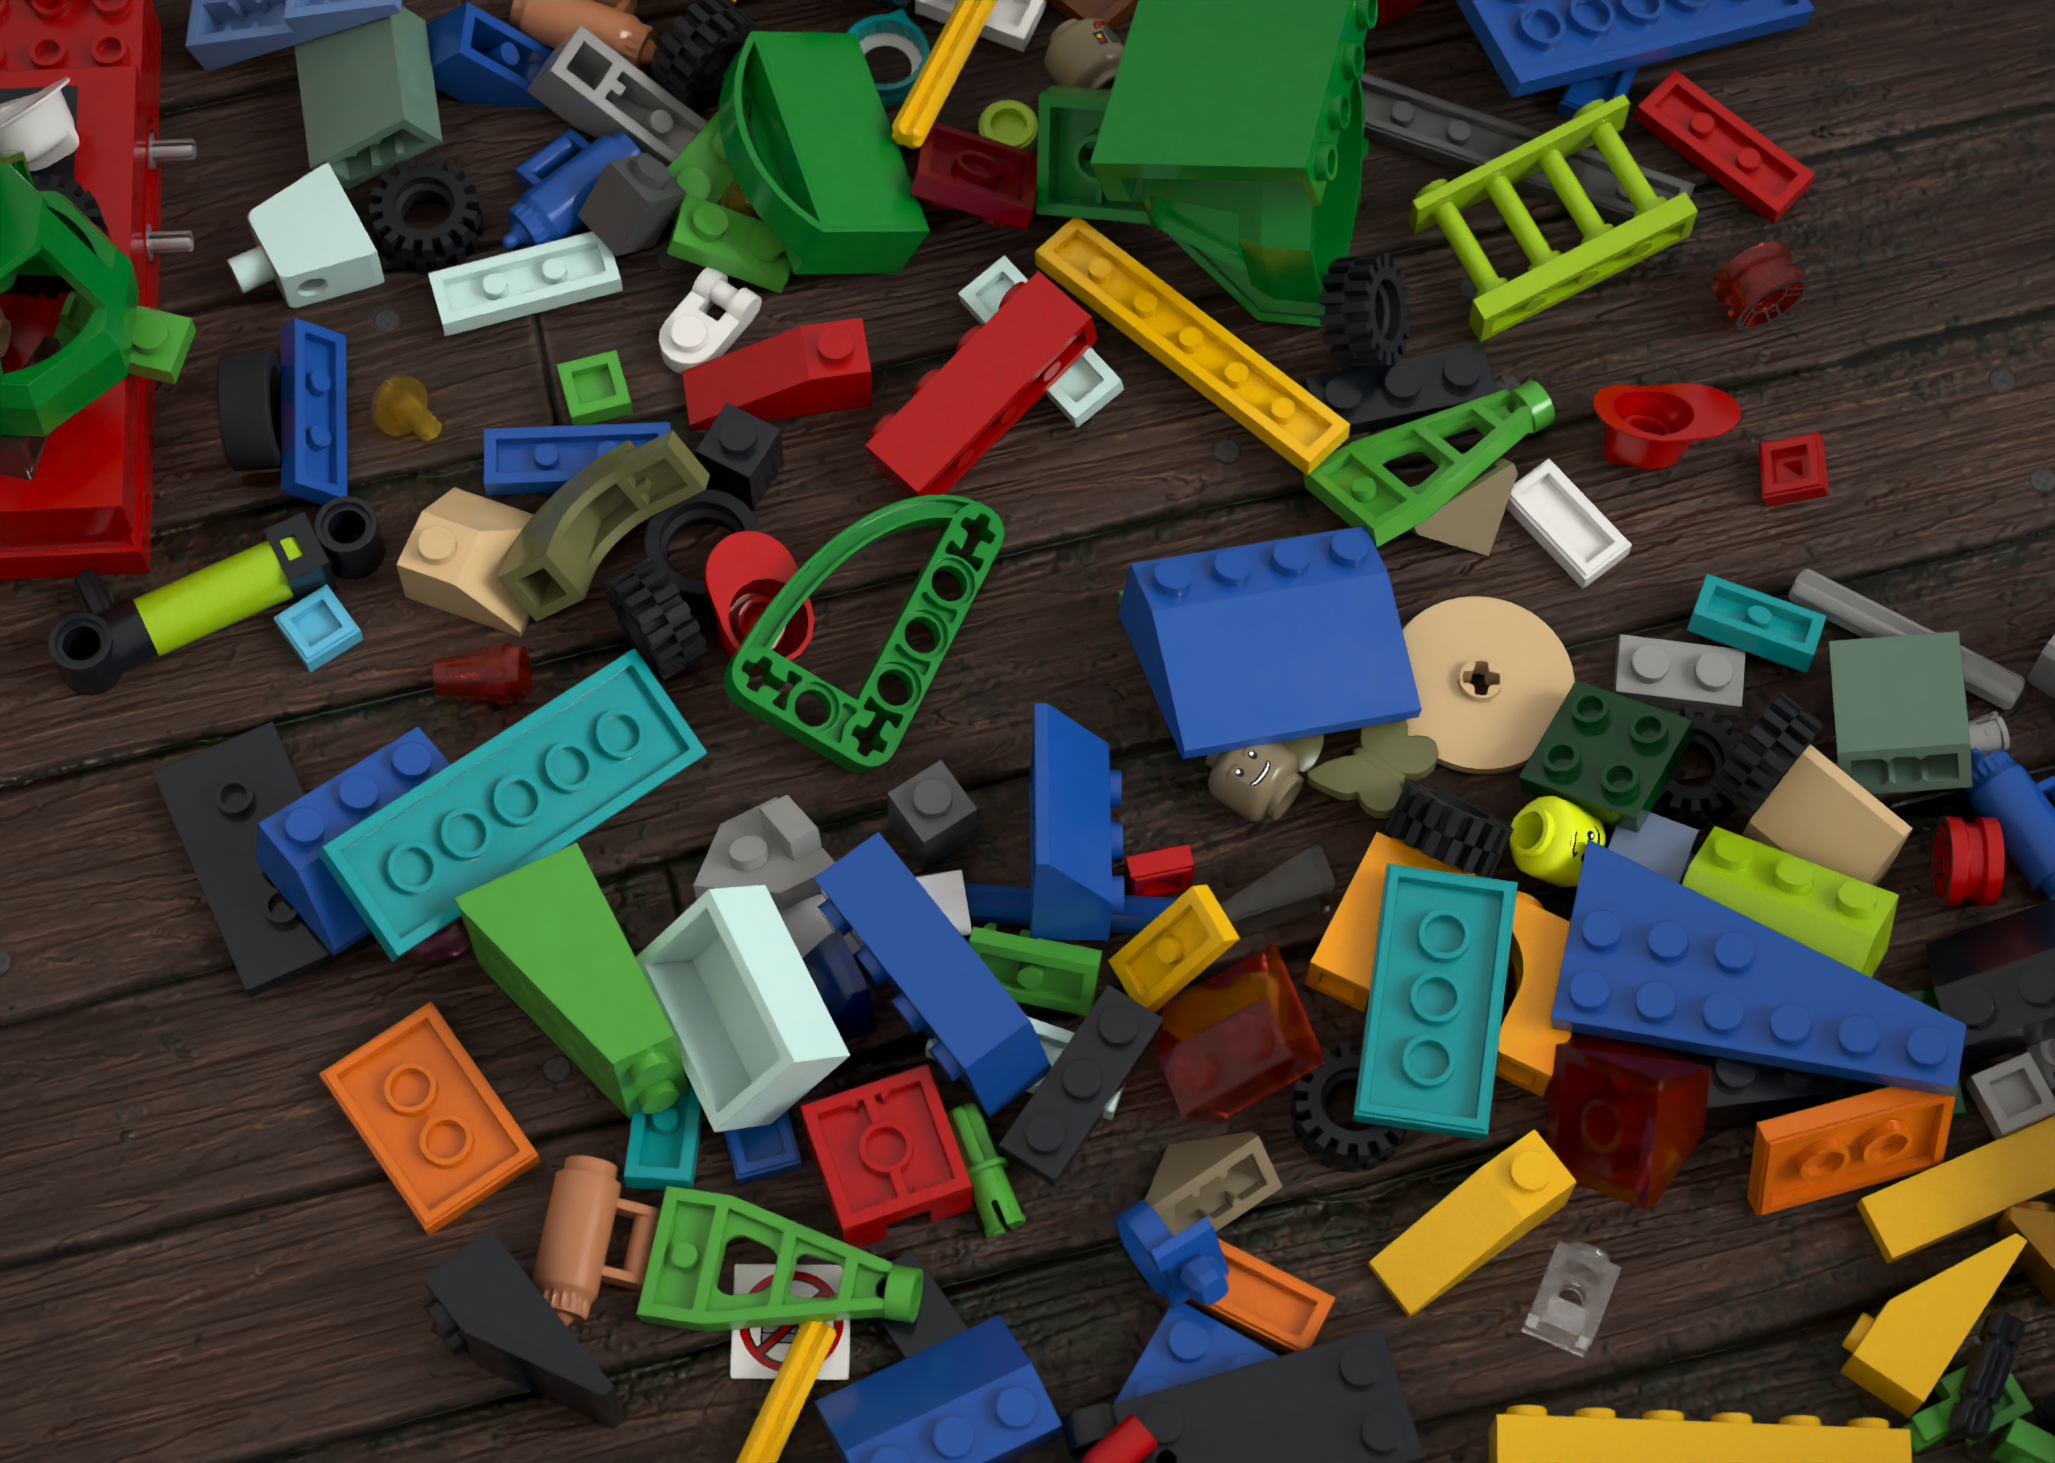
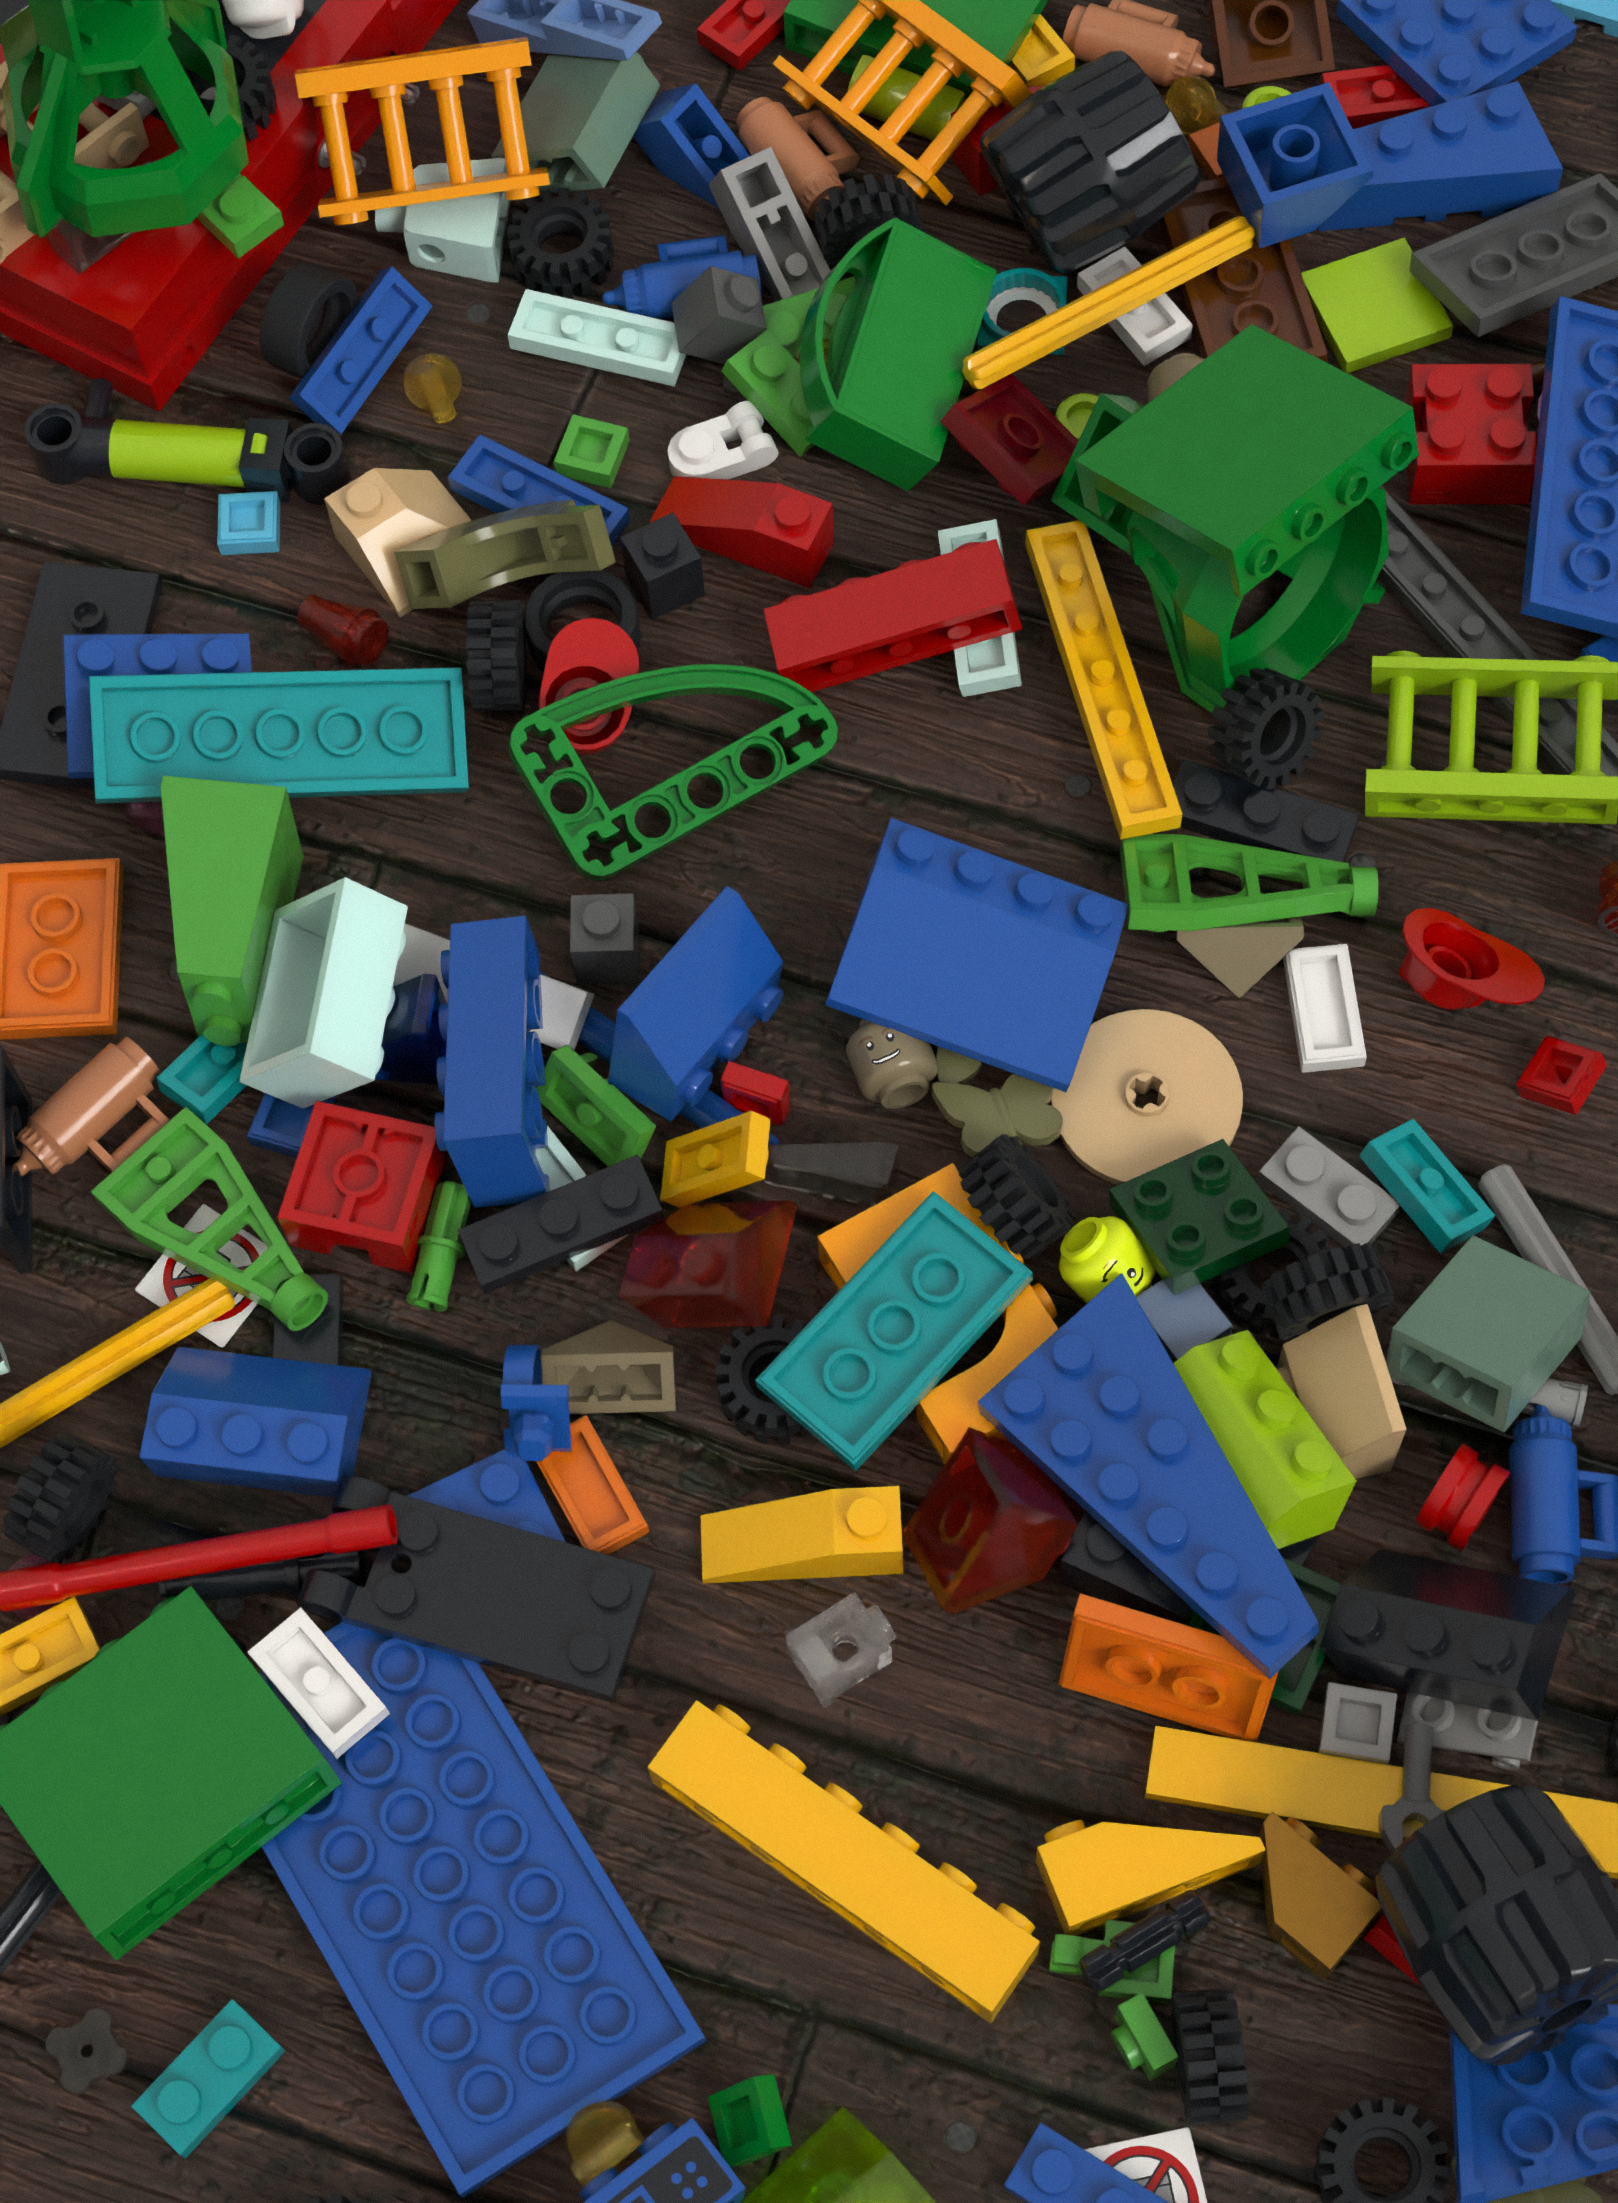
camera: 40 degrees right, 0 degrees up
(201, 144) = (444, 73): none -> light orange fence
(766, 847) = (442, 890): light grey plate -> none

